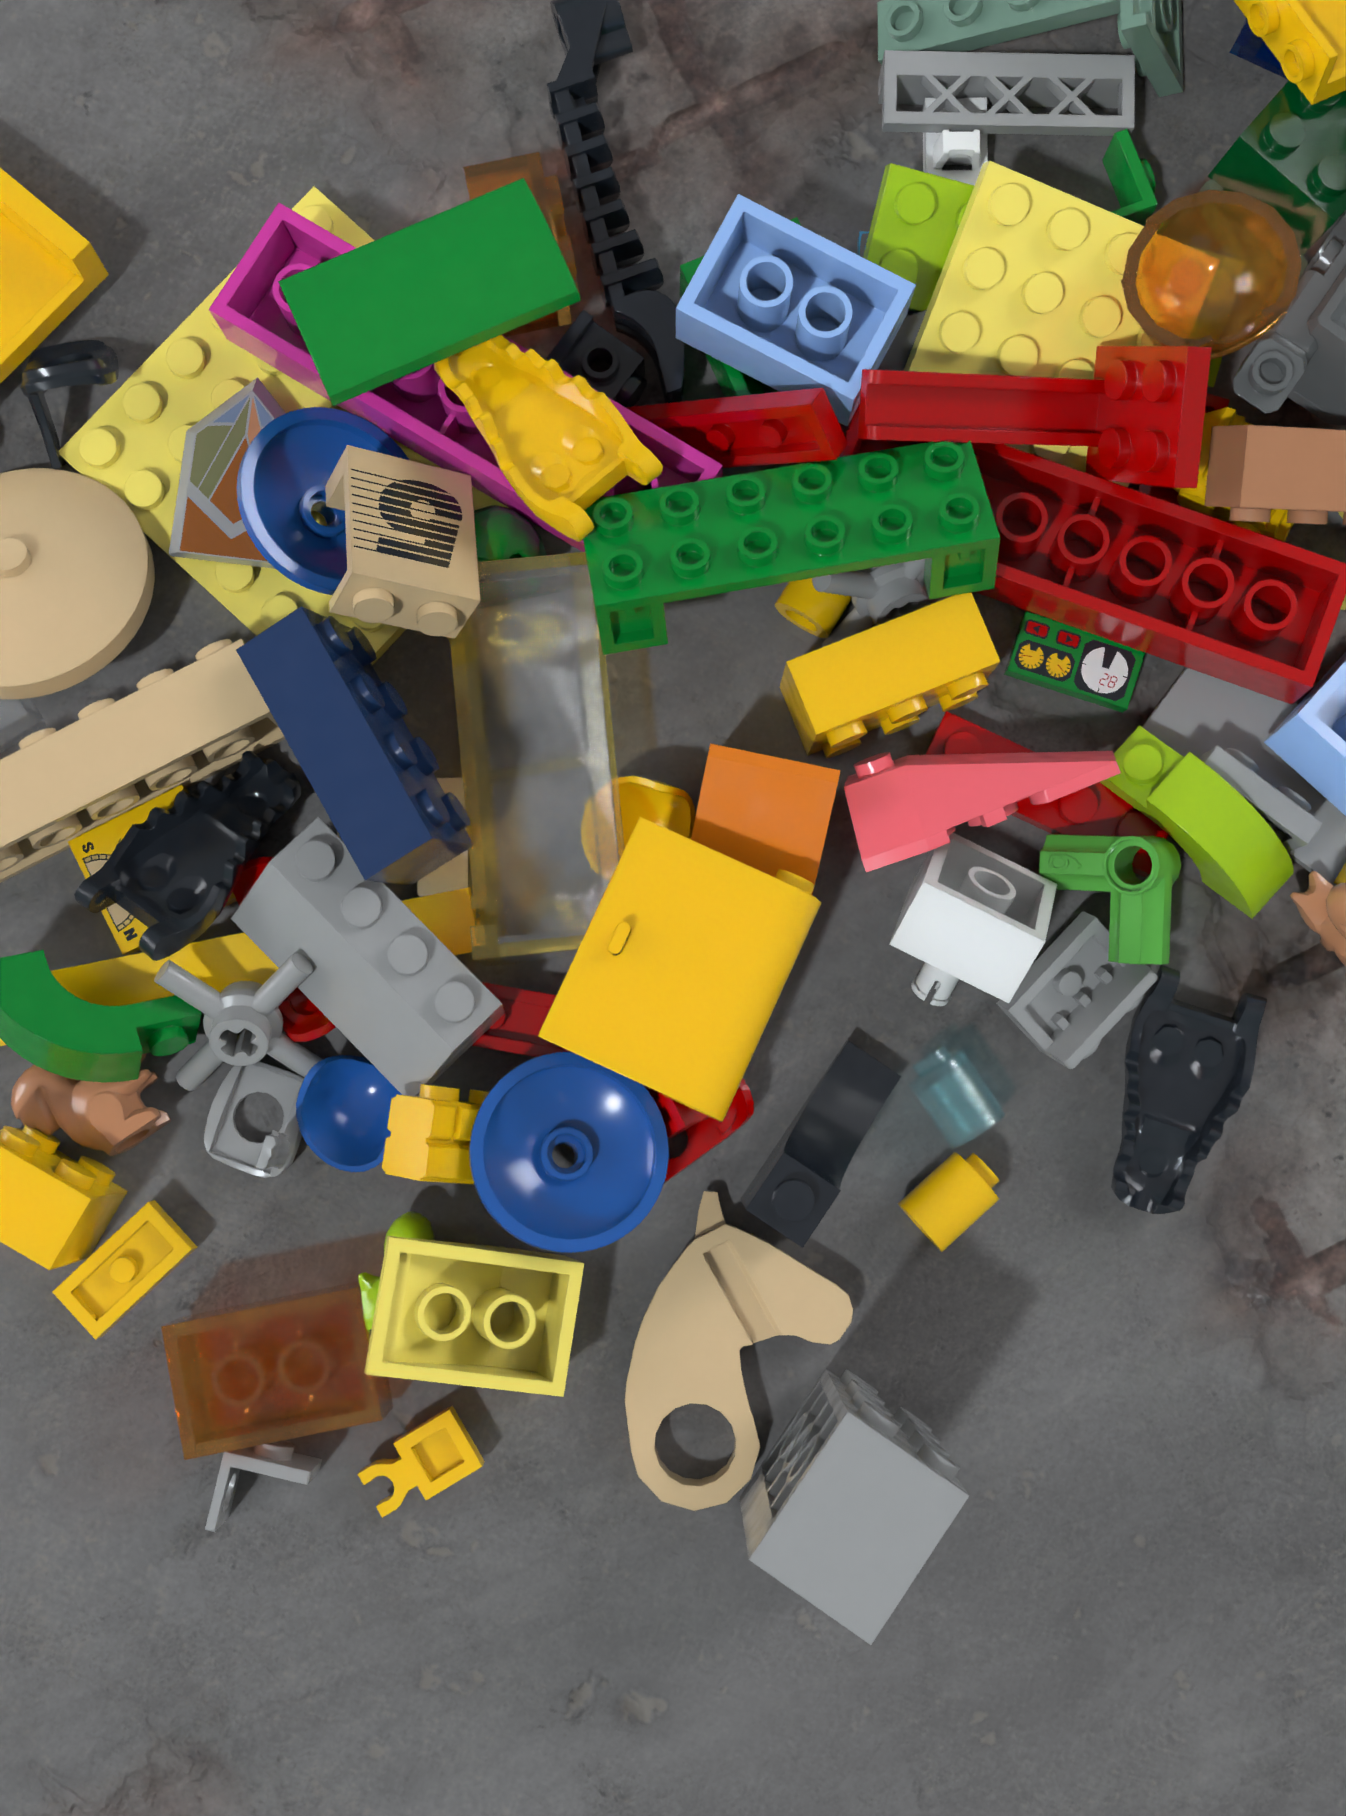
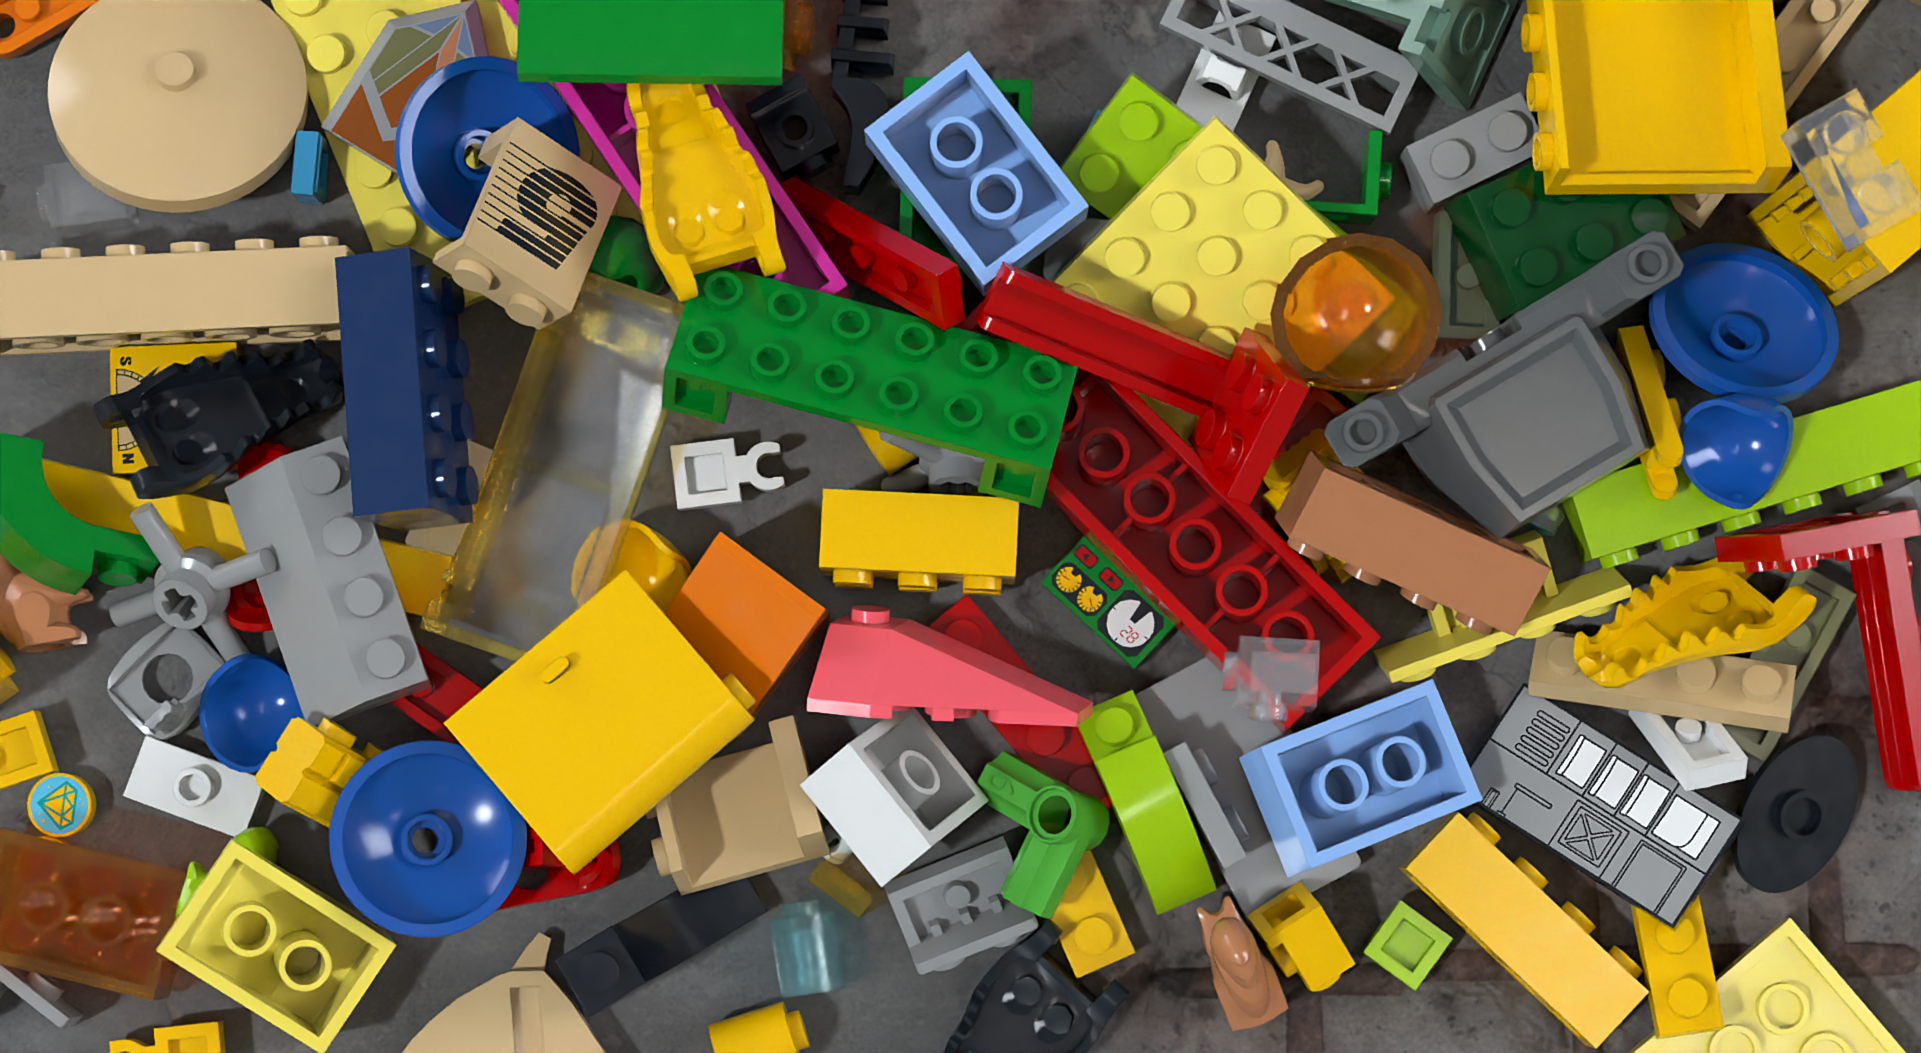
camera: 25 degrees right, 0 degrees up
(177, 597) = (310, 168): none -> dark azure tile
(213, 1277) = (61, 805): none -> tile
(328, 1205) = (194, 787): none -> white plate
(669, 708) = (712, 472): none -> white plate
(844, 998) = (740, 816): none -> tan panel
(960, 1024) = (841, 887): none -> clear yellow tile
(1201, 956) = (1090, 922): none -> yellow plate
(1211, 117) = (1470, 153): none -> light grey brick
(1284, 641) = (1272, 676): none -> clear brick

